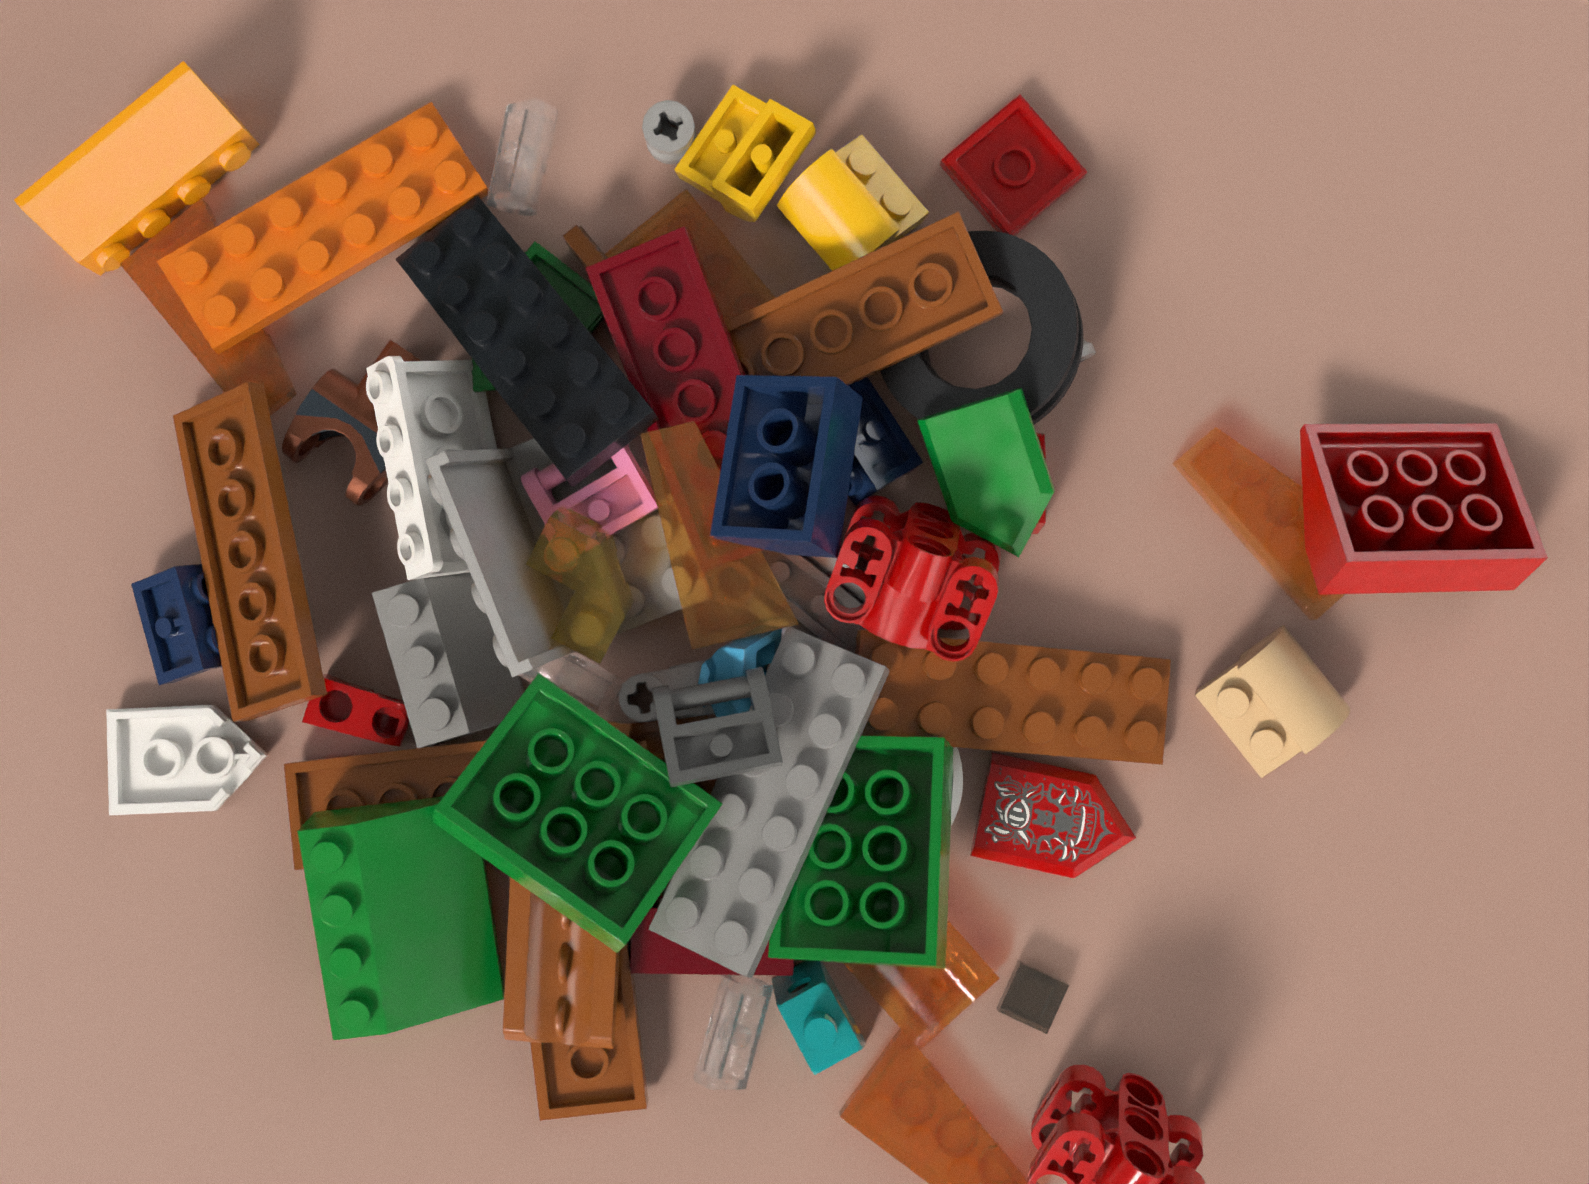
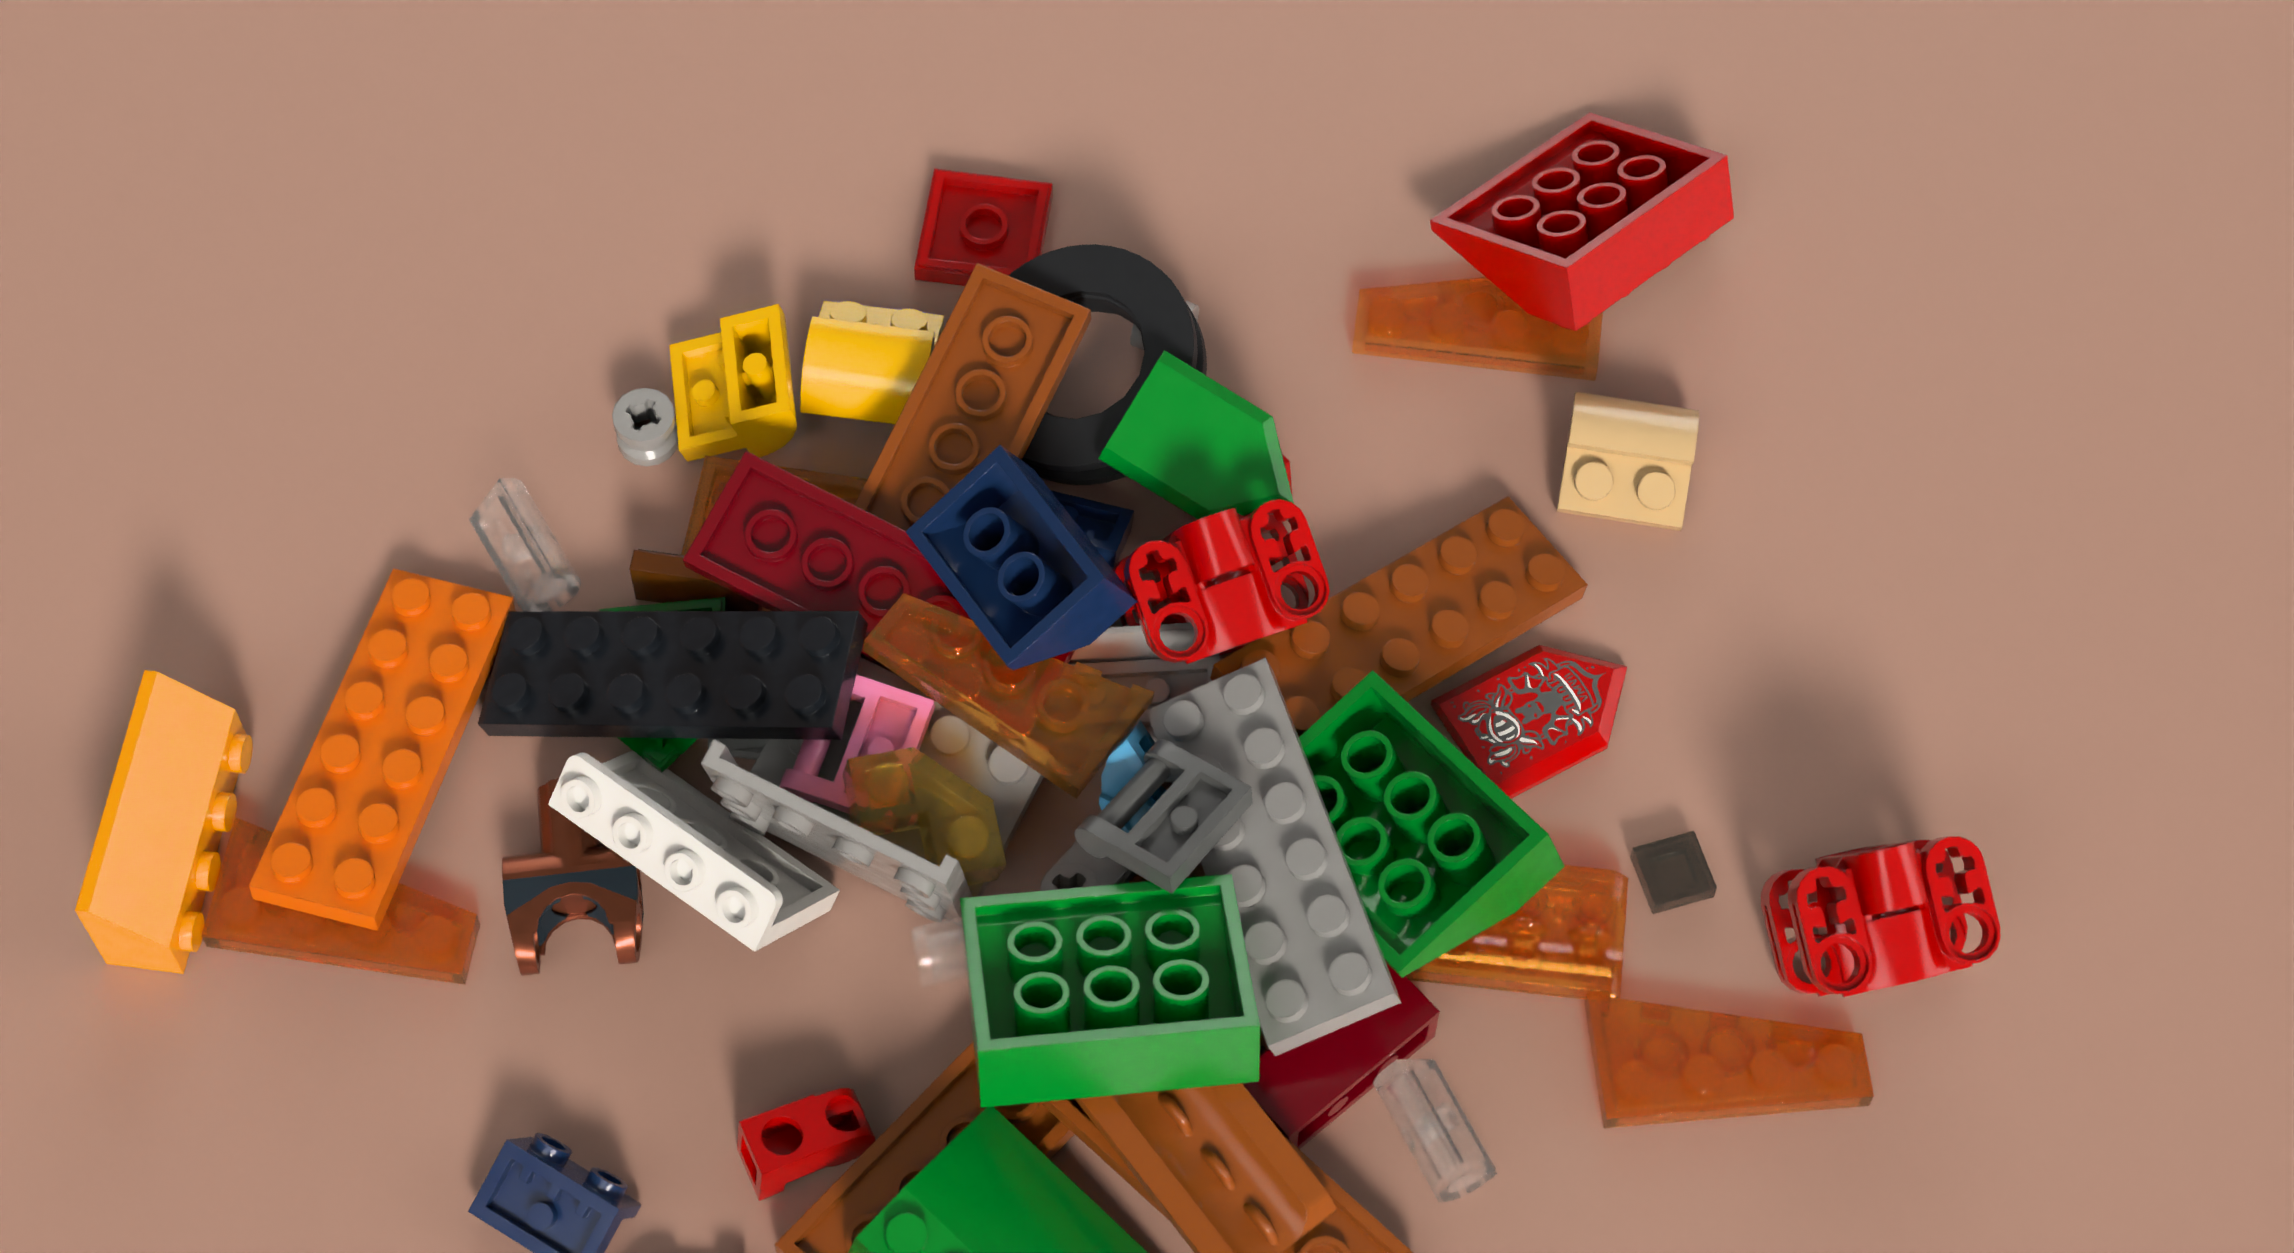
camera: 45 degrees left, 25 degrees down
(249, 553) = (572, 1072): dark orange plate -> none
(444, 658) = (847, 1019): light grey slope -> none
(817, 1016) = (1501, 1036): teal torso -> none

